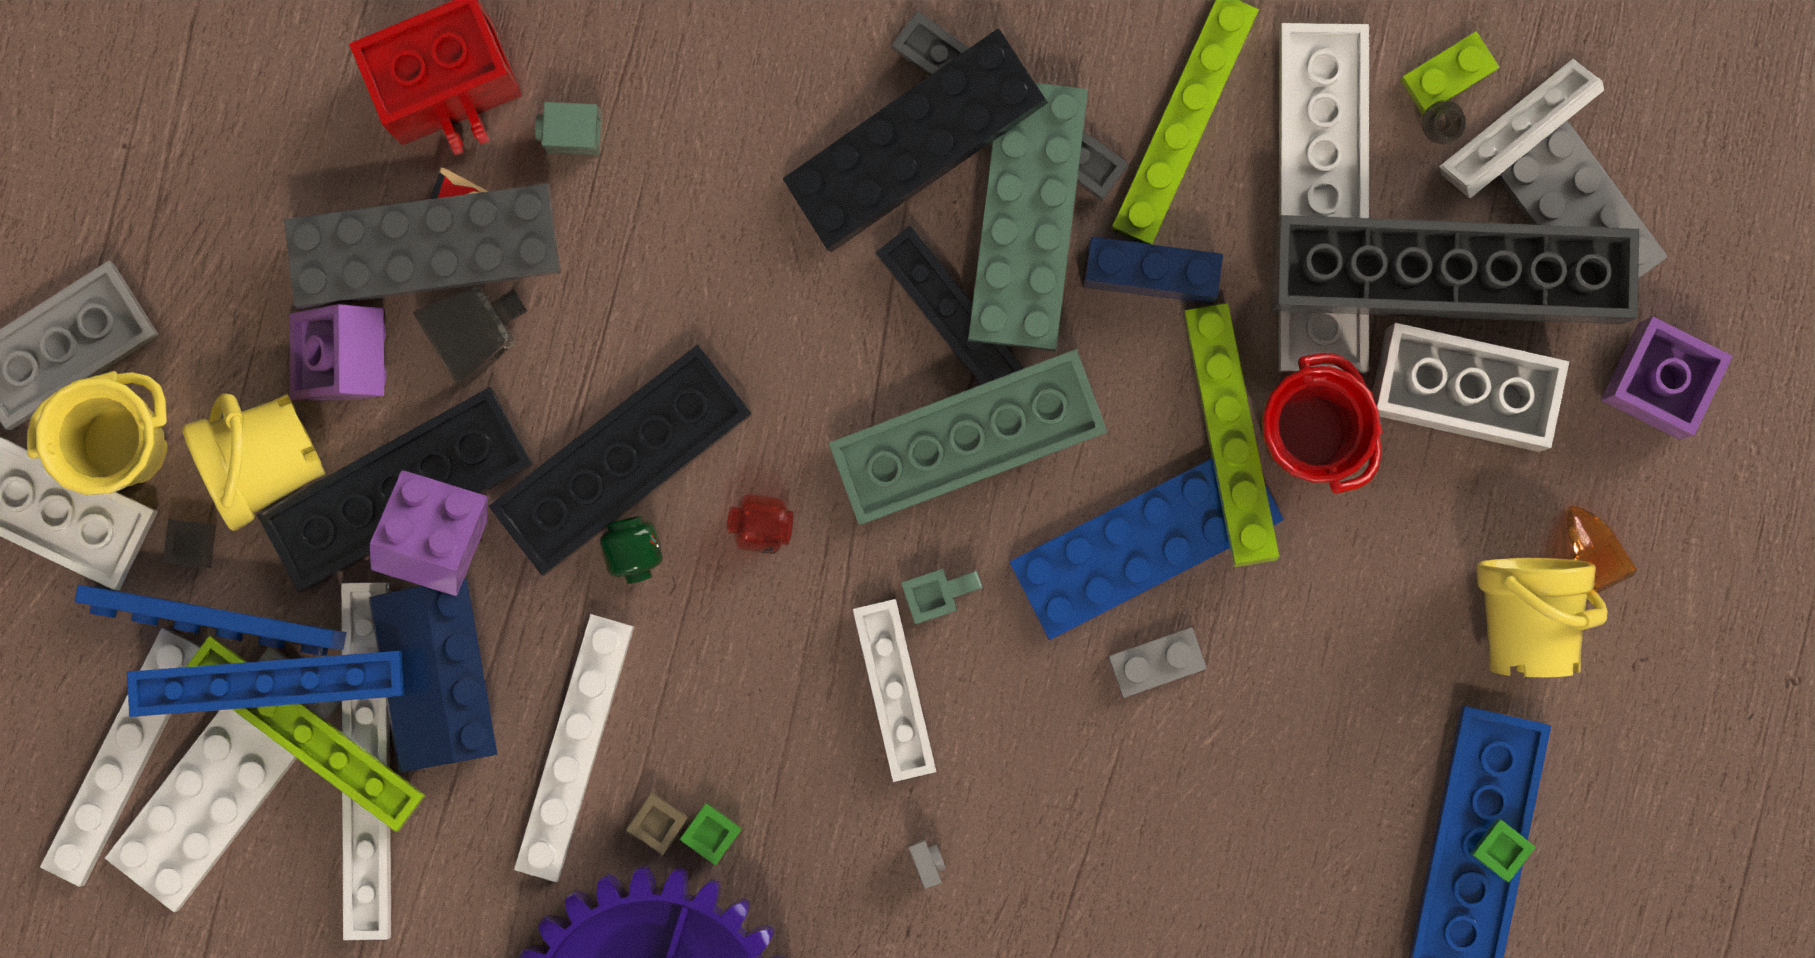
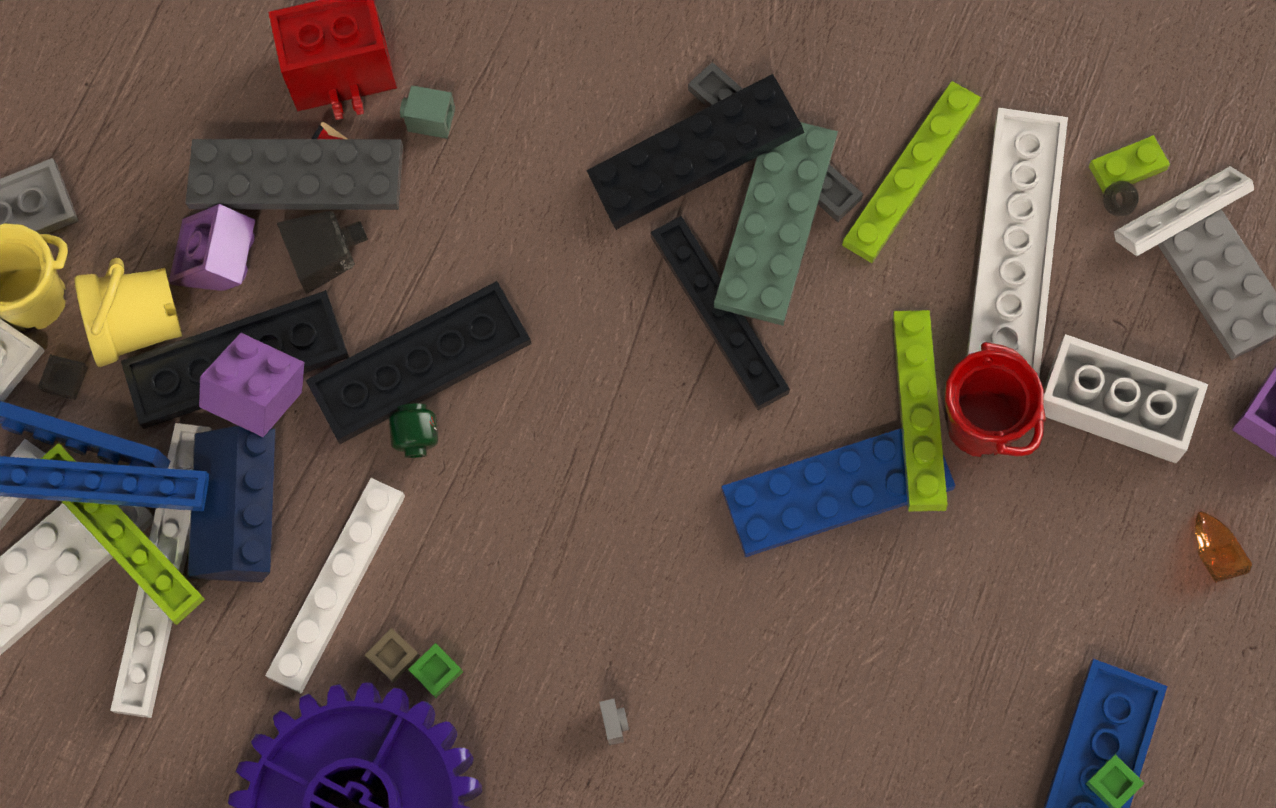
camera: 15 degrees right, 15 degrees down
(760, 523) = (522, 425): clear red head -> none
(894, 690) = (609, 576): white plate -> none
(934, 595) = (654, 502): sand green plate -> none
(968, 437) = (702, 379): sand green plate -> none
(1152, 270) = (870, 275): dark blue brick -> none
(1157, 662) = (834, 587): light grey plate -> none
(1455, 269) = (1120, 300): dark grey brick -> none
(1538, 613) = (1163, 584): light yellow piece -> none

